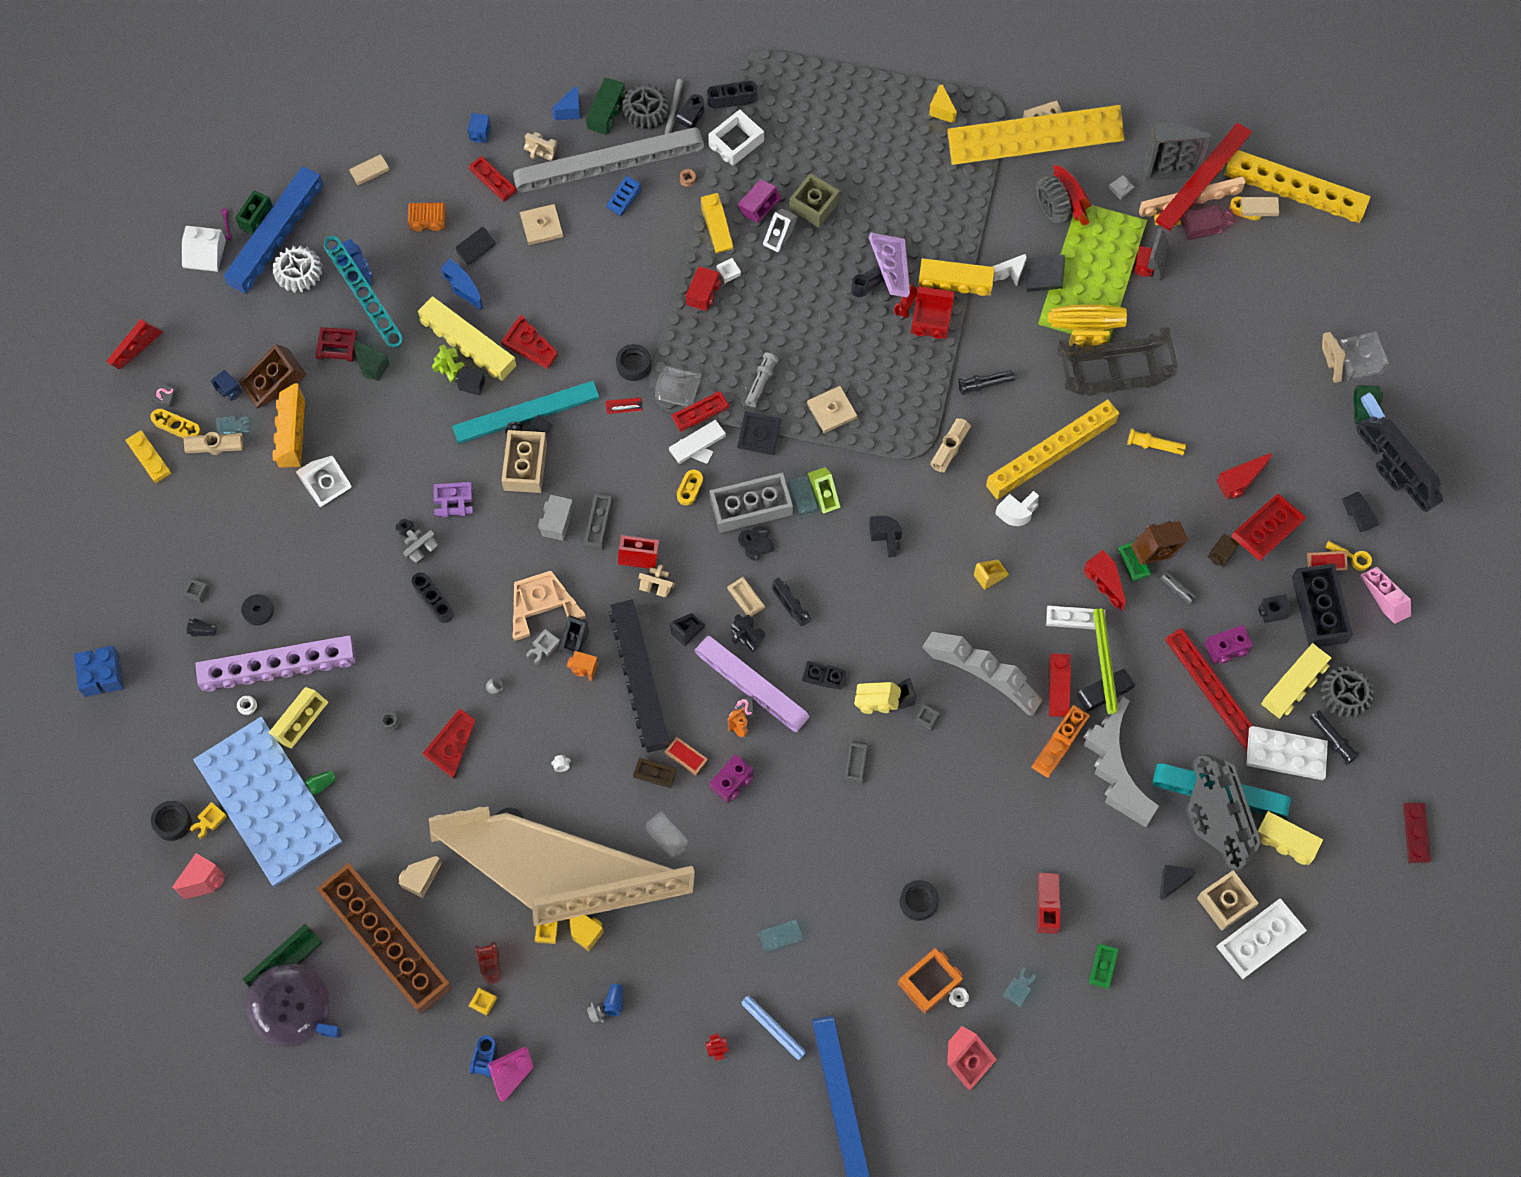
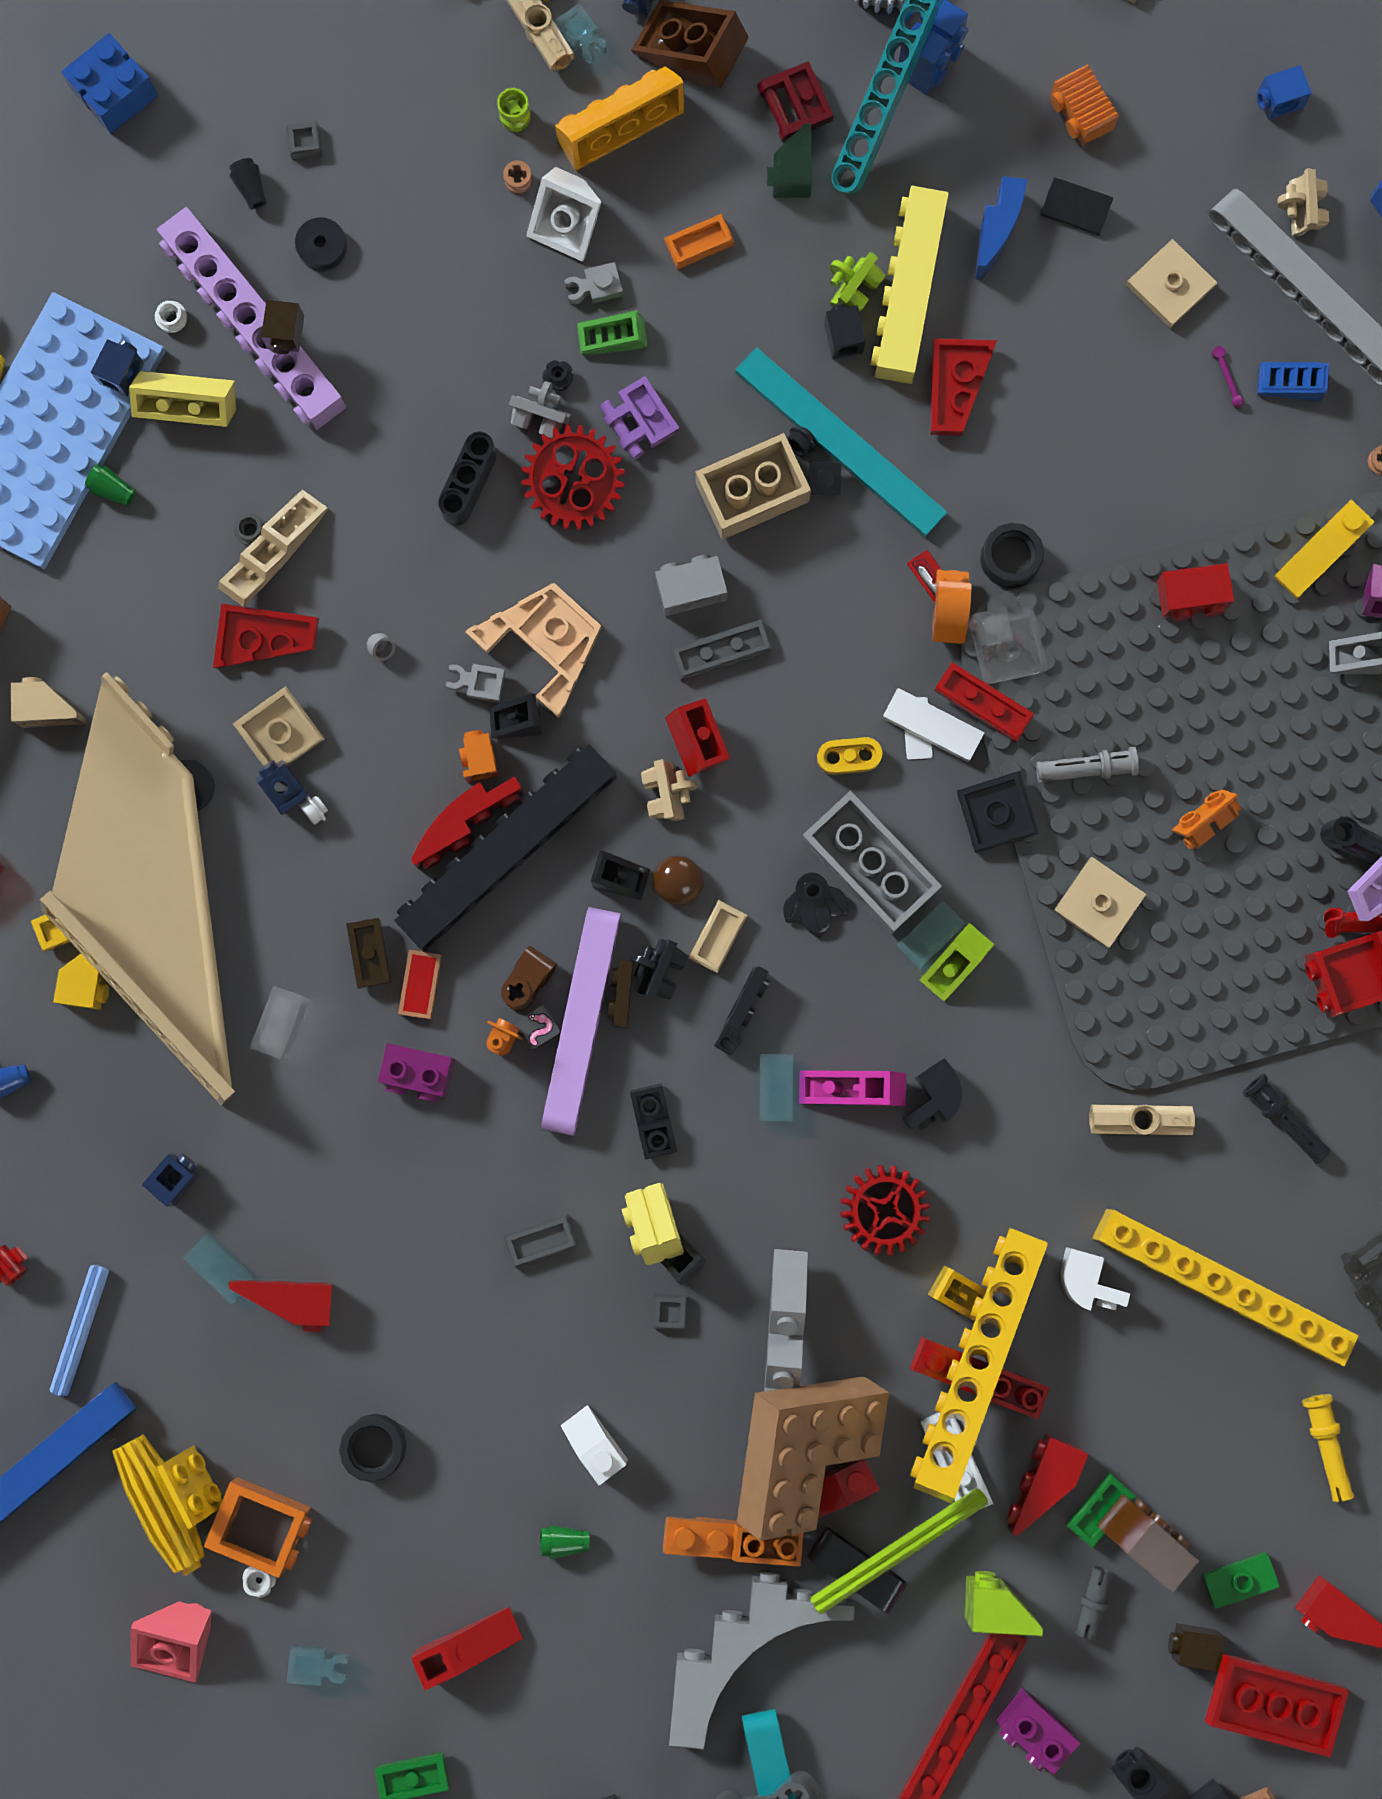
camera: 65 degrees right, 15 degrees up
(250, 473) = (510, 103): none -> lime wheel
(260, 740) = (117, 366): none -> dark blue brick
(287, 500) = (525, 184): none -> nougat bush
(295, 642) = (282, 326): none -> dark brown brick
(369, 484) = (600, 283): none -> light grey plate
(378, 426) = (699, 241): none -> orange tile
(397, 482) = (610, 323): none -> bright green slope
(407, 713) = (273, 548): none -> tan slope
(450, 554) = (599, 488): none -> red gear
(492, 178) = (1208, 164): red tile -> none
(508, 759) = (279, 729): none -> tan plate
(544, 775) = (289, 797): none -> dark blue brick
(589, 222) = (1218, 354): none -> magenta hinge
(612, 694) = (451, 827): none -> red slope
(644, 400) = (951, 606): none -> orange brick
(705, 601) = (677, 880): none -> reddish brown hair
(713, 697) = (531, 974): none -> reddish brown piece
(714, 926) = (160, 1182): none -> dark blue brick
(728, 270) = (1250, 613): white plate -> none
(754, 659) = (620, 1007): none -> dark brown plate
(816, 333) = (1218, 808): none -> orange hinge
(819, 902) = (296, 1302): none -> red slope
(839, 607) = (776, 1087): none -> clear light blue plate
(860, 570) = (852, 1088): none -> dark pink slope
(890, 1021) = (169, 1499): none -> yellow plate
(936, 598) = (909, 1224): none -> red gear
(976, 786) = (594, 1445): none -> white slope
(1017, 829) = (562, 1541): none -> green cone
(1025, 678) = (793, 1441): none -> medium nougat piece
(1039, 583) = (1011, 1389): none -> red slope
(1041, 575) = (945, 1481): none -> yellow brick
(1155, 628) = (995, 1608): none -> lime slope
(1201, 516) = (1240, 1580): none -> green plate

